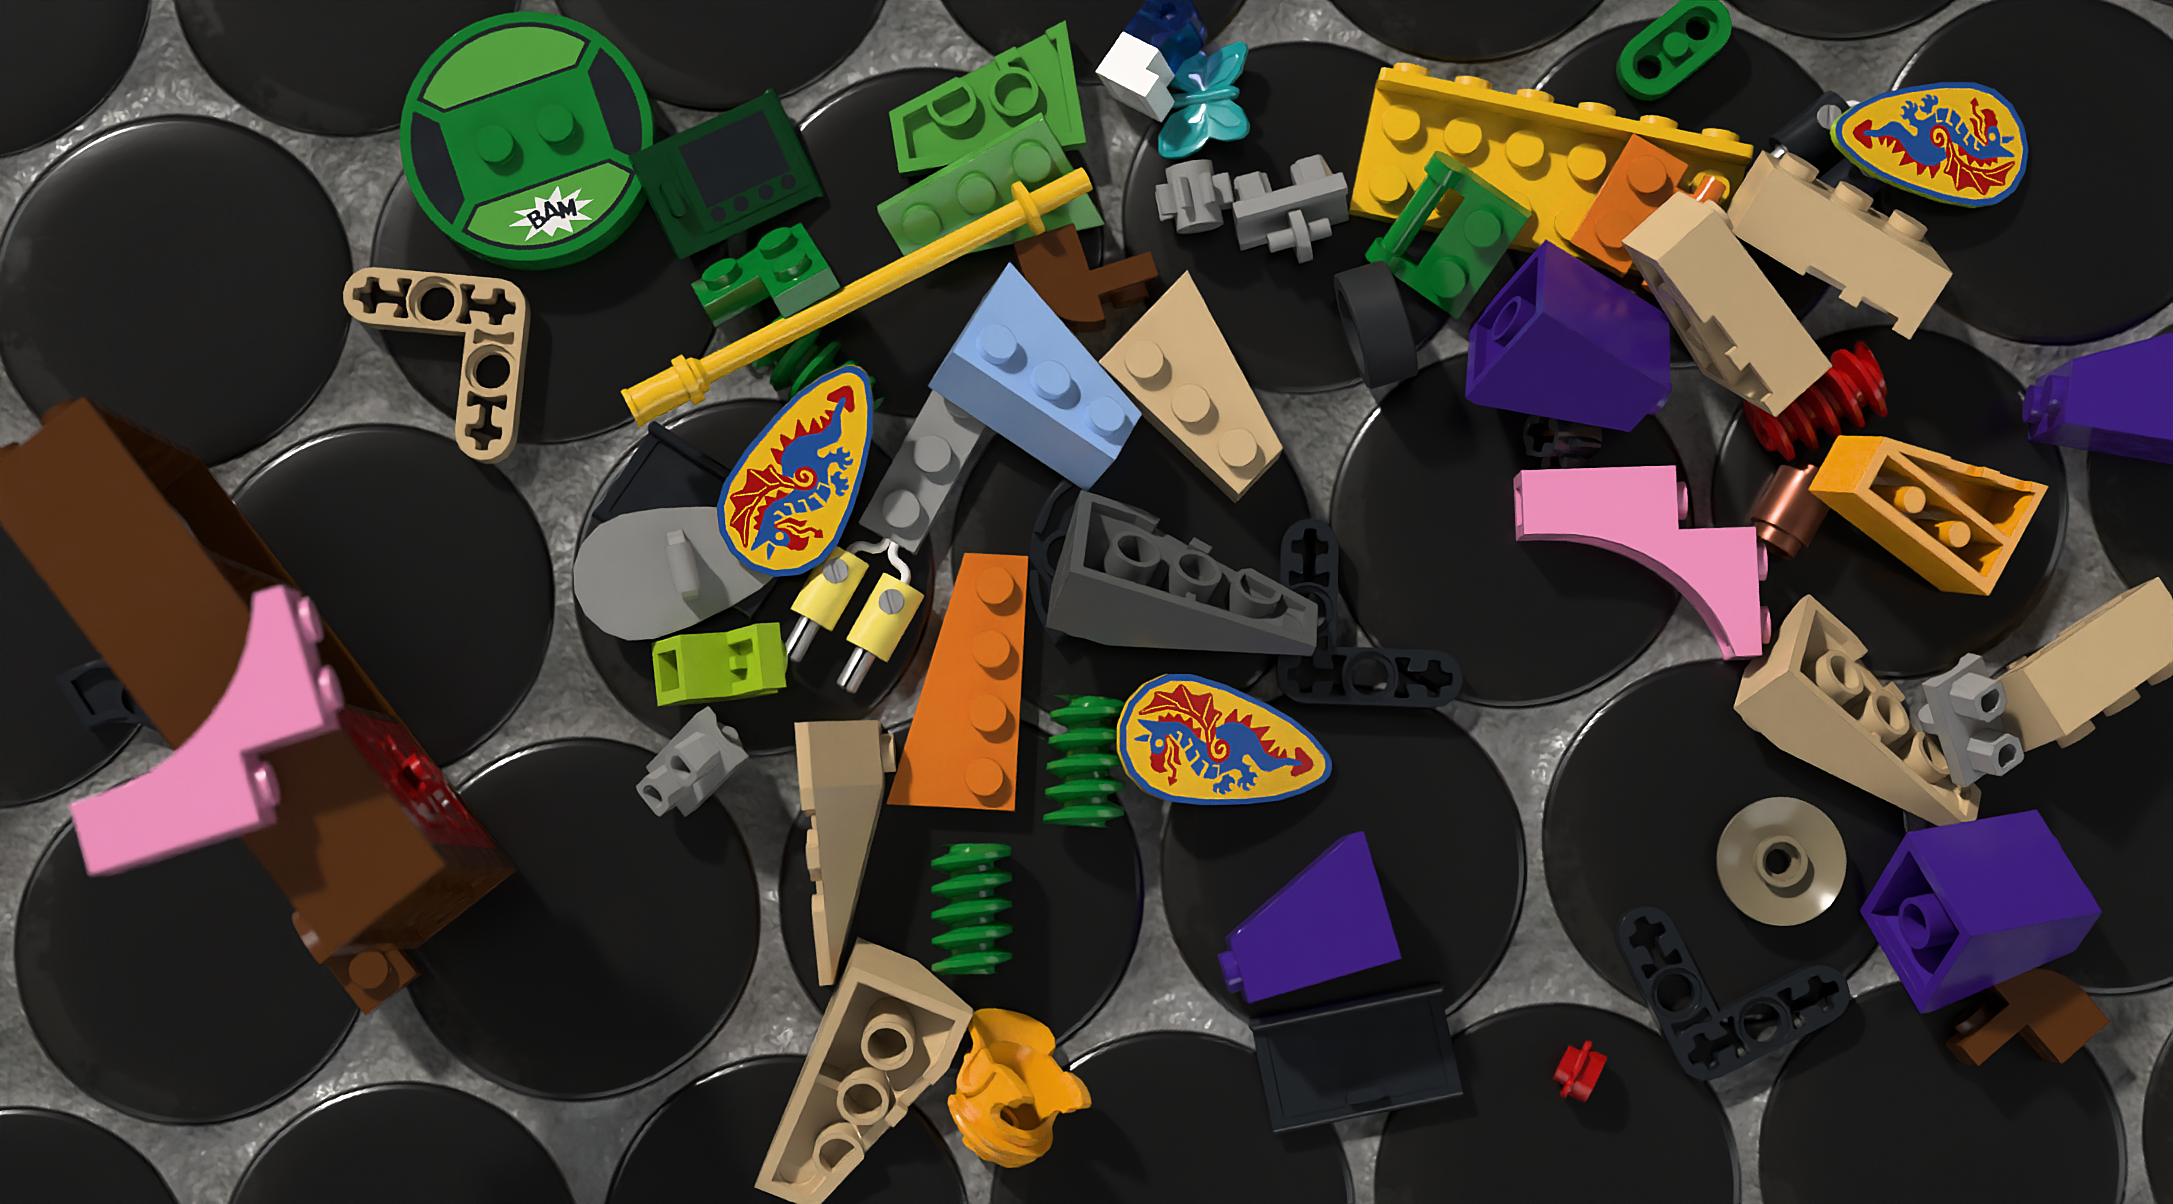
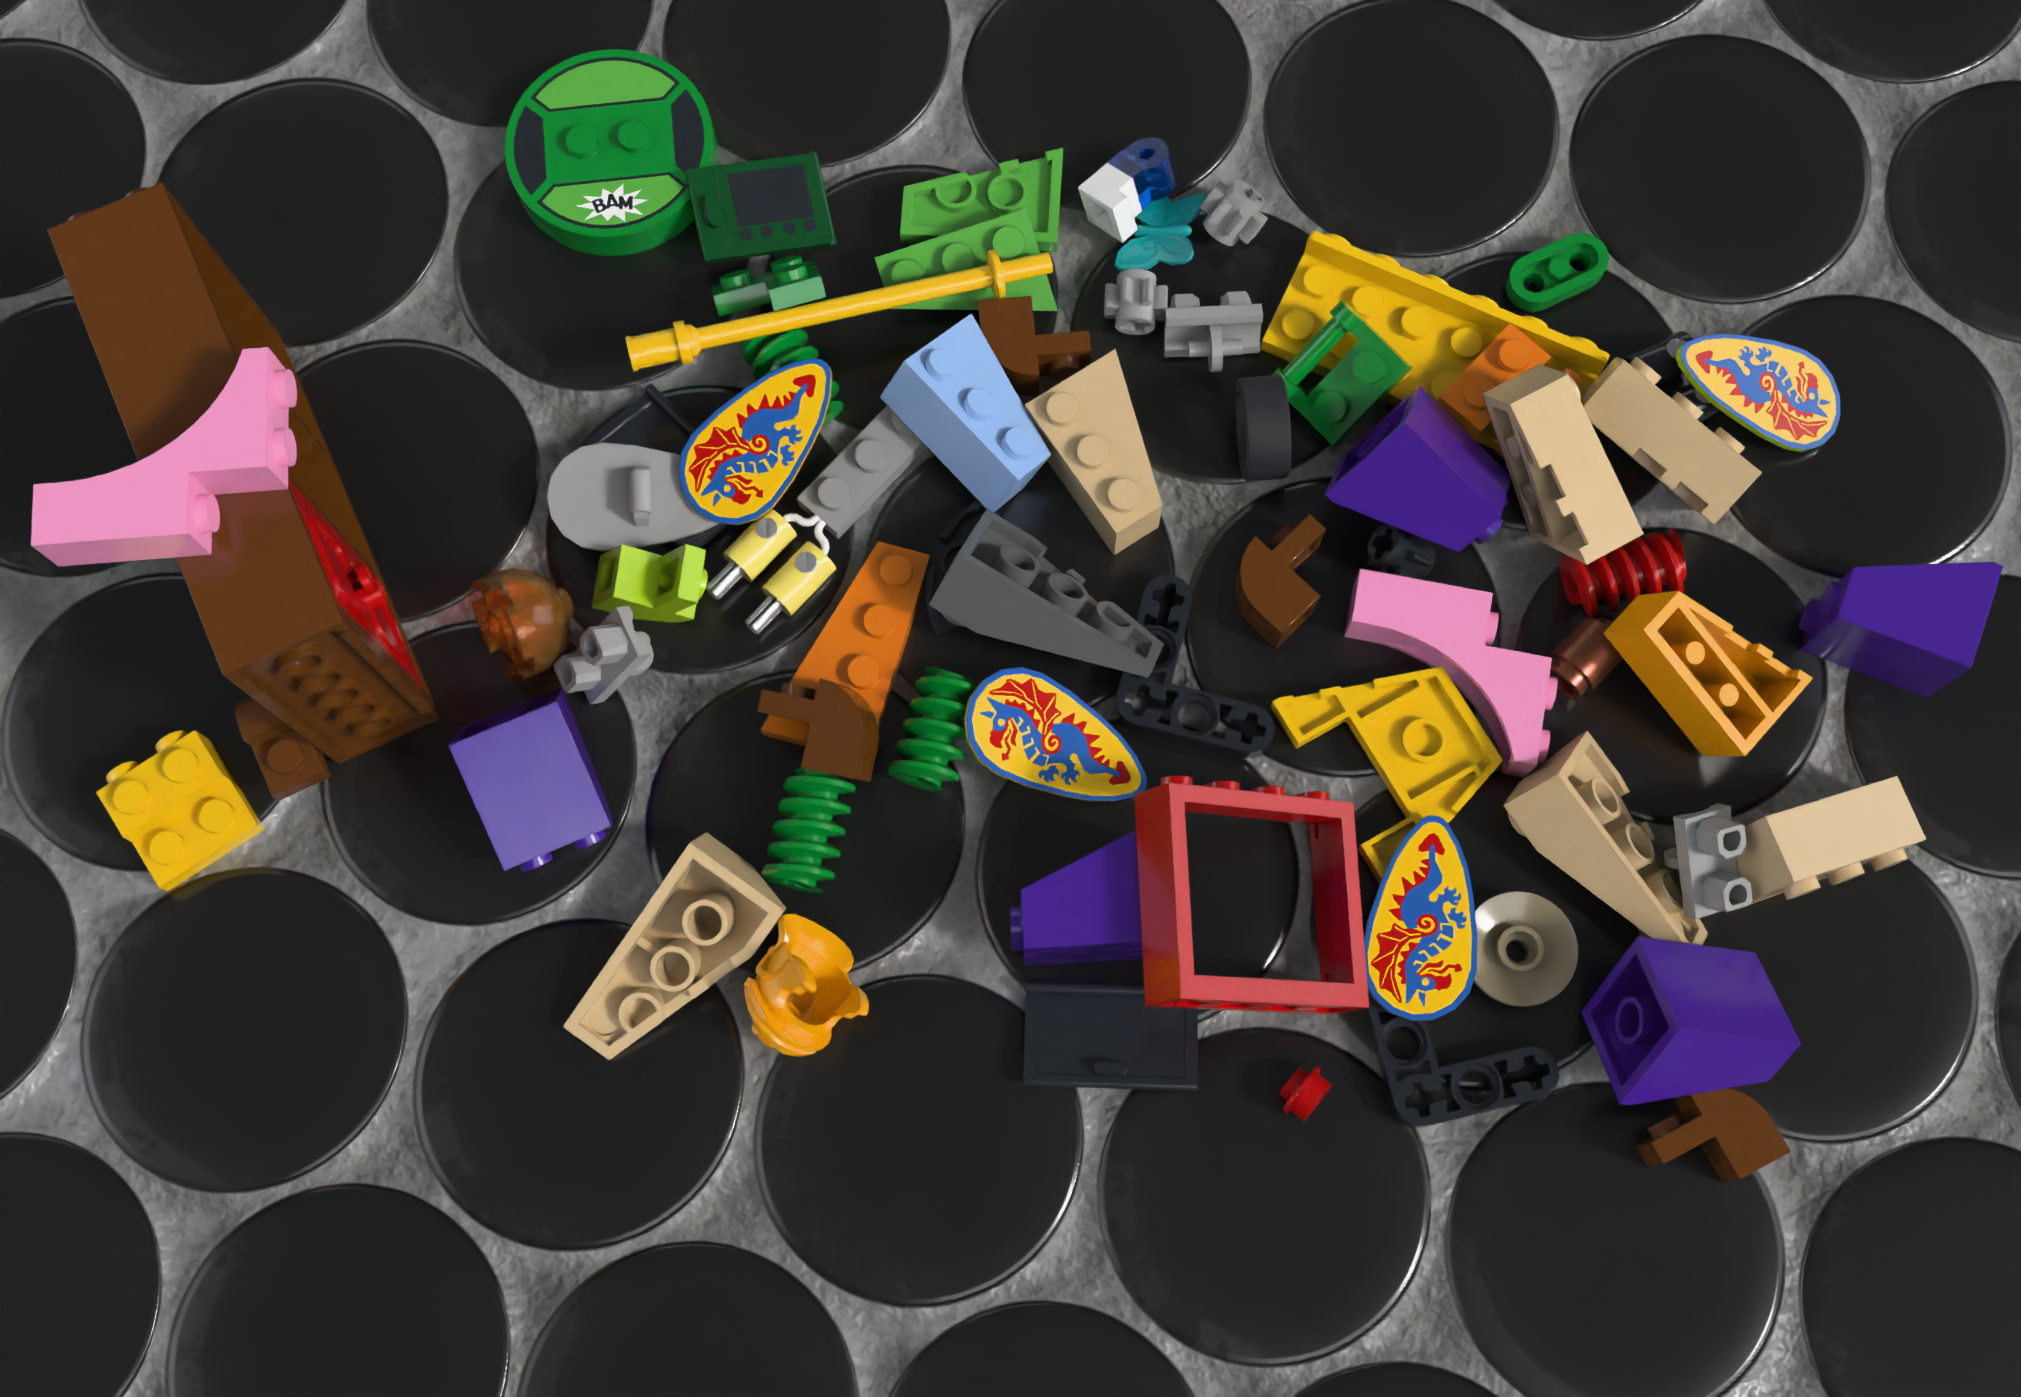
camera: 15 degrees right, 10 degrees down
(256, 1043) = (179, 807): none -> yellow plate
(481, 340) = (529, 288): tan beam -> none
(588, 742) = (523, 619): none -> clear orange cylinder
(646, 921) = (532, 781): none -> dark purple slope
(843, 793) = (723, 700): tan wedge -> none
(981, 787) = (841, 728): none -> reddish brown brick
(1284, 59) = (1233, 212): none -> light grey gear
(1393, 914) = (1167, 908): none -> red window
(1418, 510) = (1268, 588): none -> reddish brown brick
(1628, 653) = (1415, 737): none -> yellow wing
(1671, 863) = (1423, 927): none -> shield

